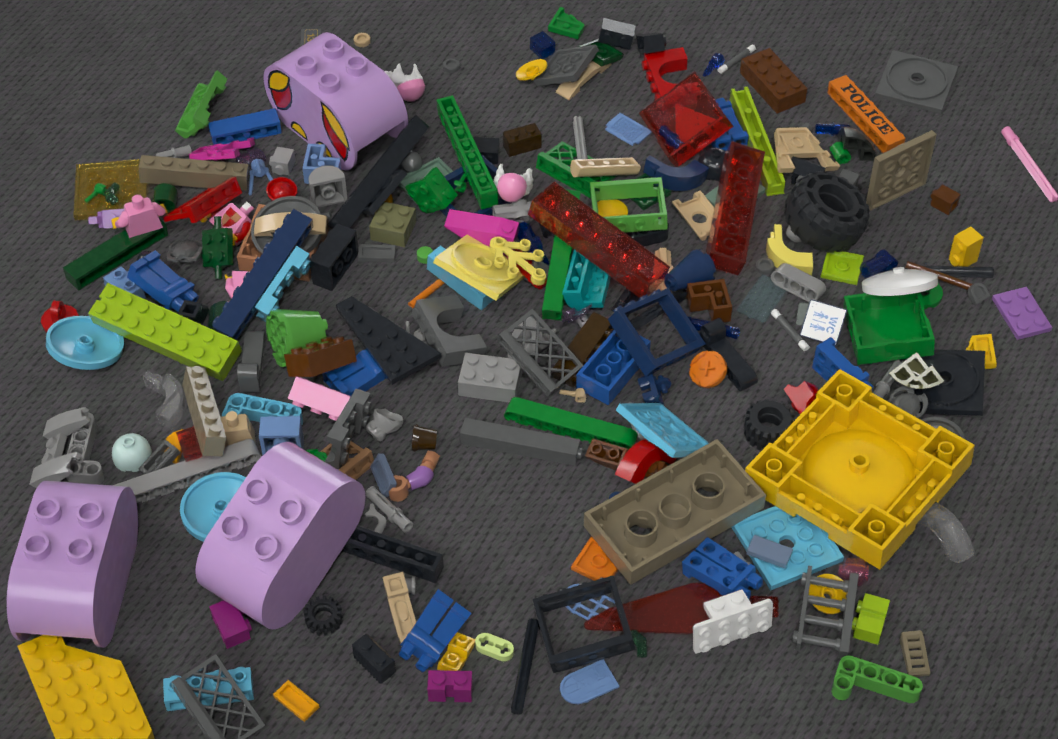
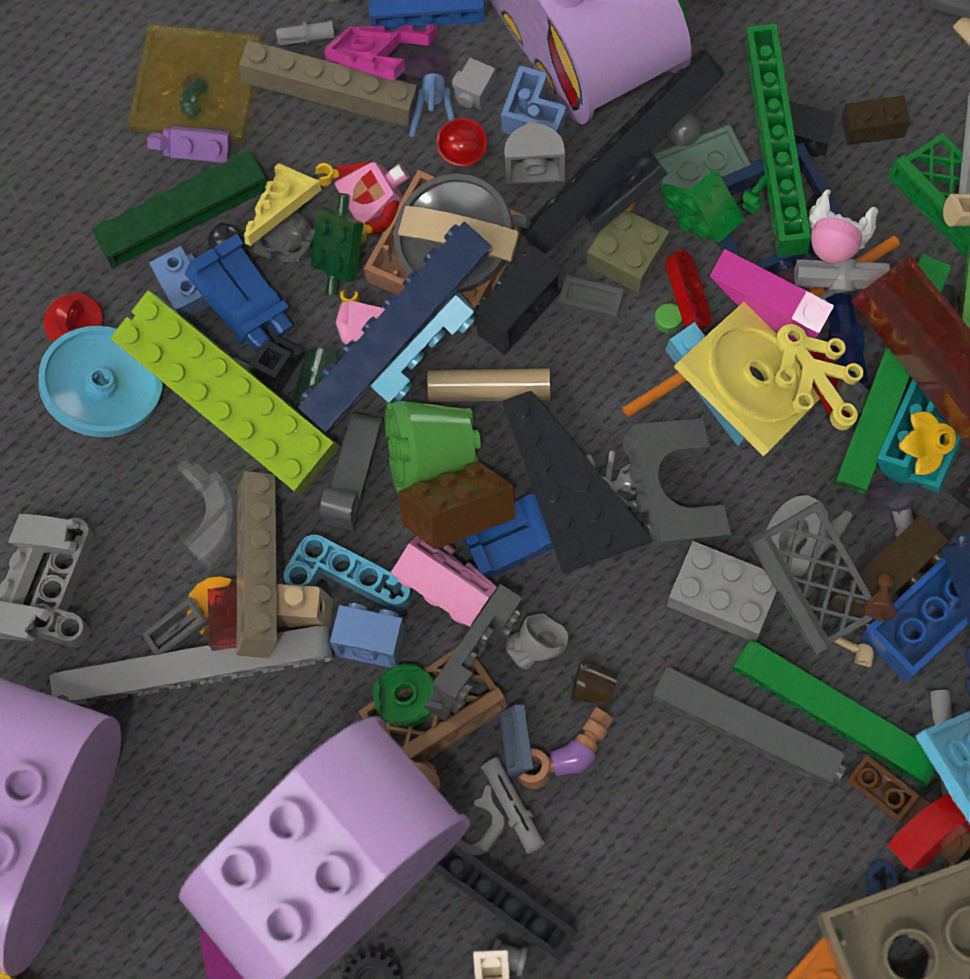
camera: 20 degrees right, 20 degrees up
(98, 189) = (173, 85): green hand -> none
(130, 452) = (136, 602): light aqua cylinder -> none
(140, 216) = (226, 162): bright pink torso -> none
(167, 195) = (274, 122): dark green piece -> none
(178, 233) = (282, 197): none -> light yellow wing
(206, 202) = (332, 151): red fence -> none
(207, 500) = (233, 723): medium azure dish -> none
(324, 305) = (487, 384): none -> tan brick
(431, 234) = (684, 275): none -> red beam
(581, 359) = (881, 604): none -> reddish brown piece
(587, 278) = (925, 442): none -> yellow plate

